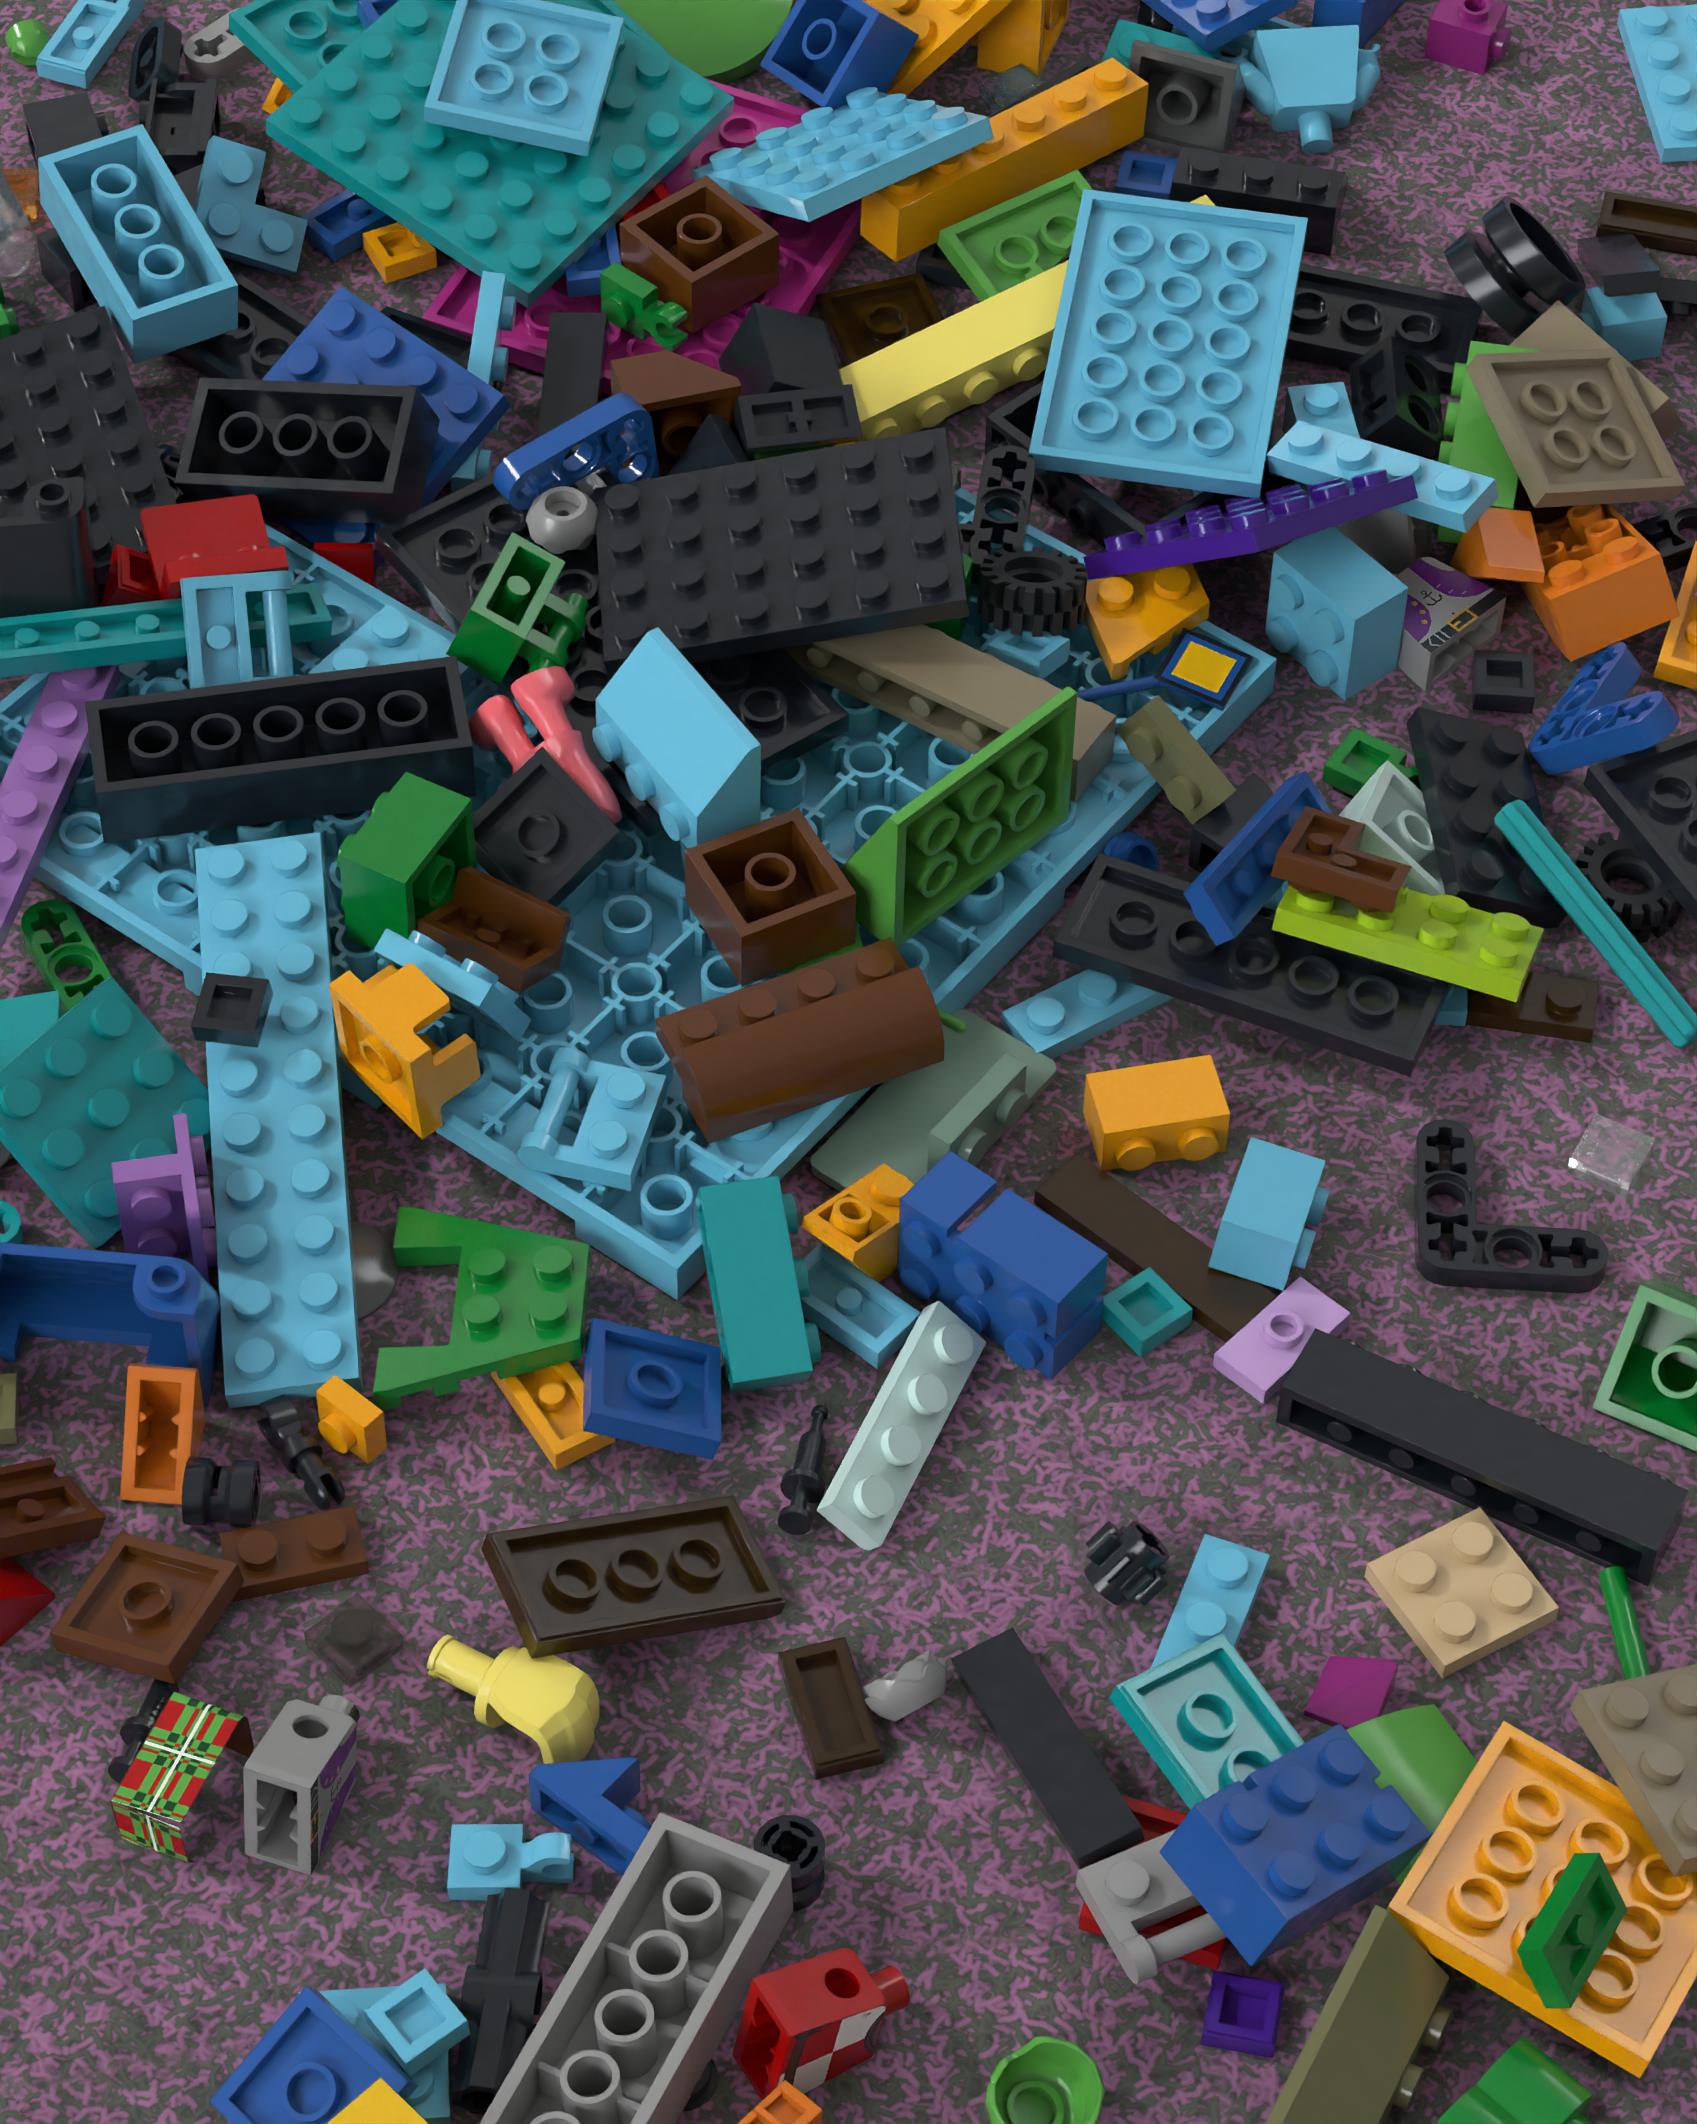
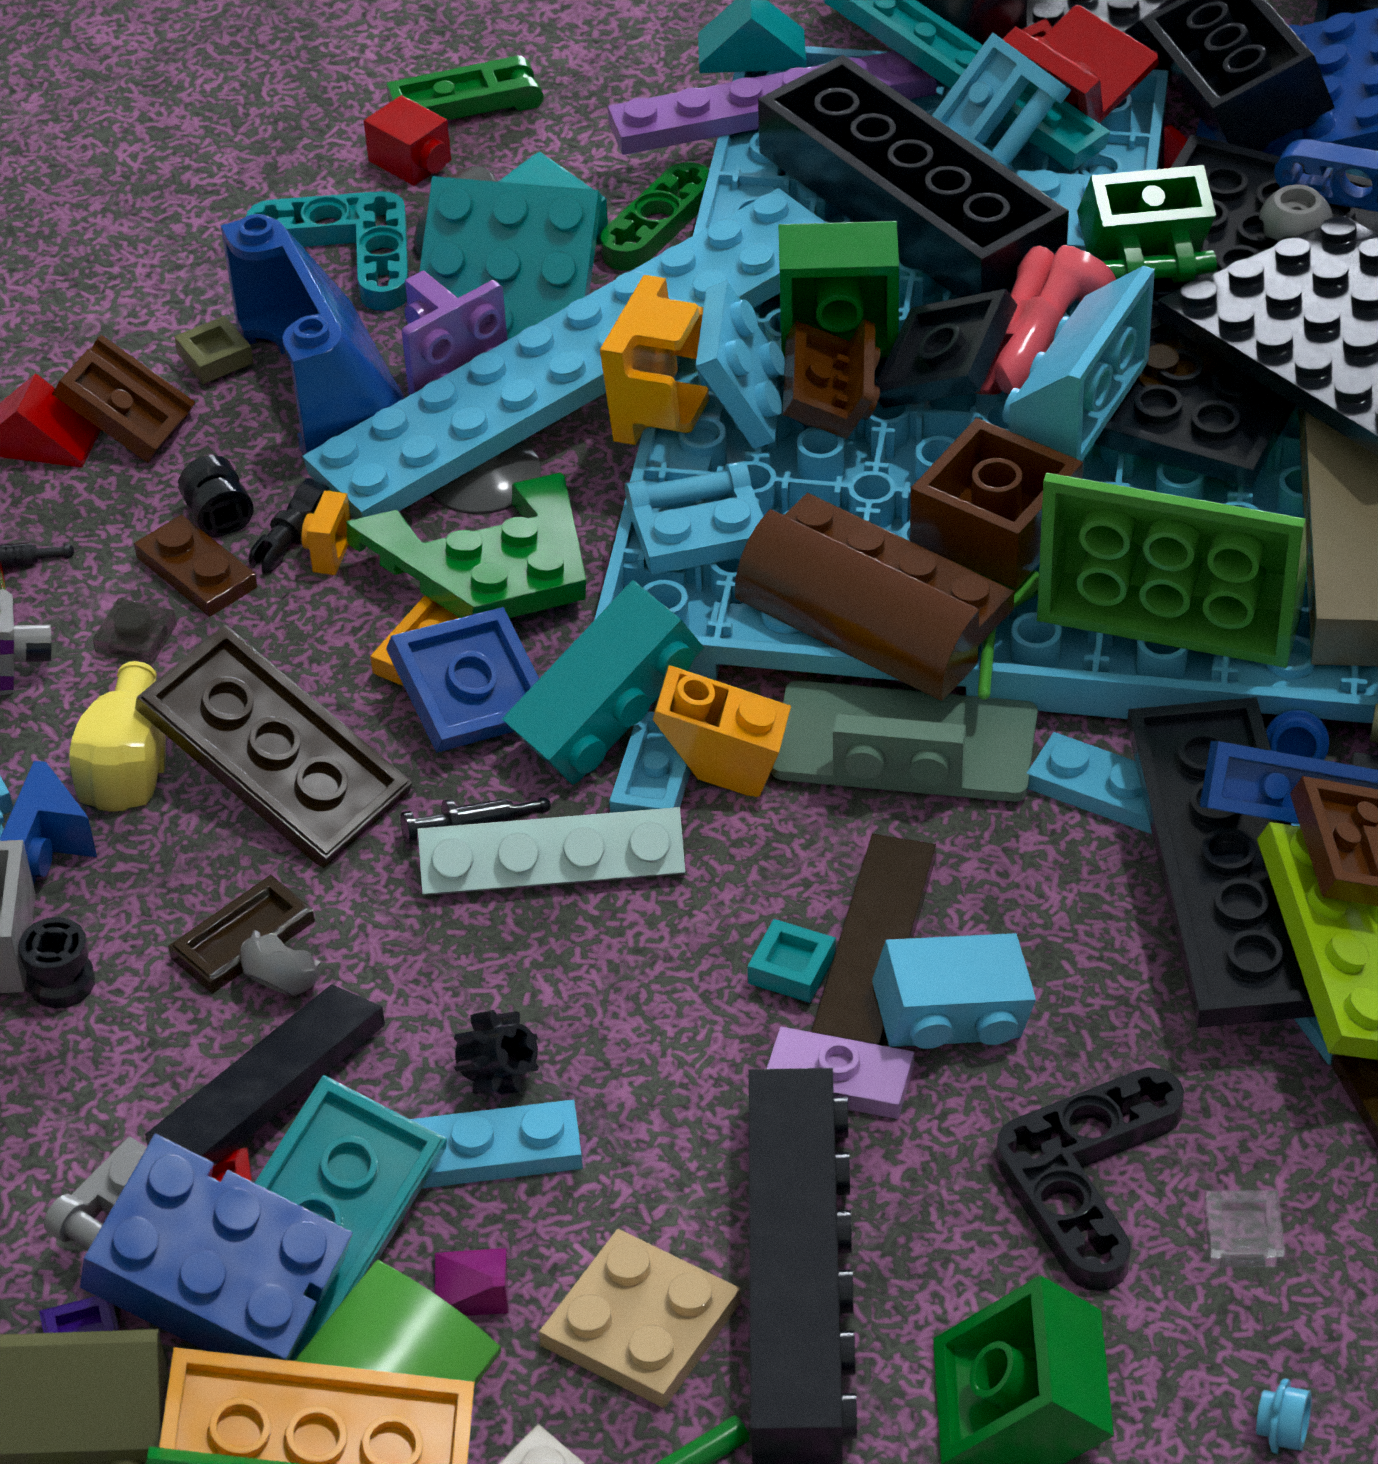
camera: 65 degrees right, 5 degrees down
(147, 1607) = (82, 504): reddish brown plate -> none
(160, 1431) = (252, 434): orange slope -> none
(232, 1009) = (621, 265): black plate -> none
(1008, 1272) = (739, 827): blue piece -> none
(1156, 1113) = (1017, 874): light orange brick -> none

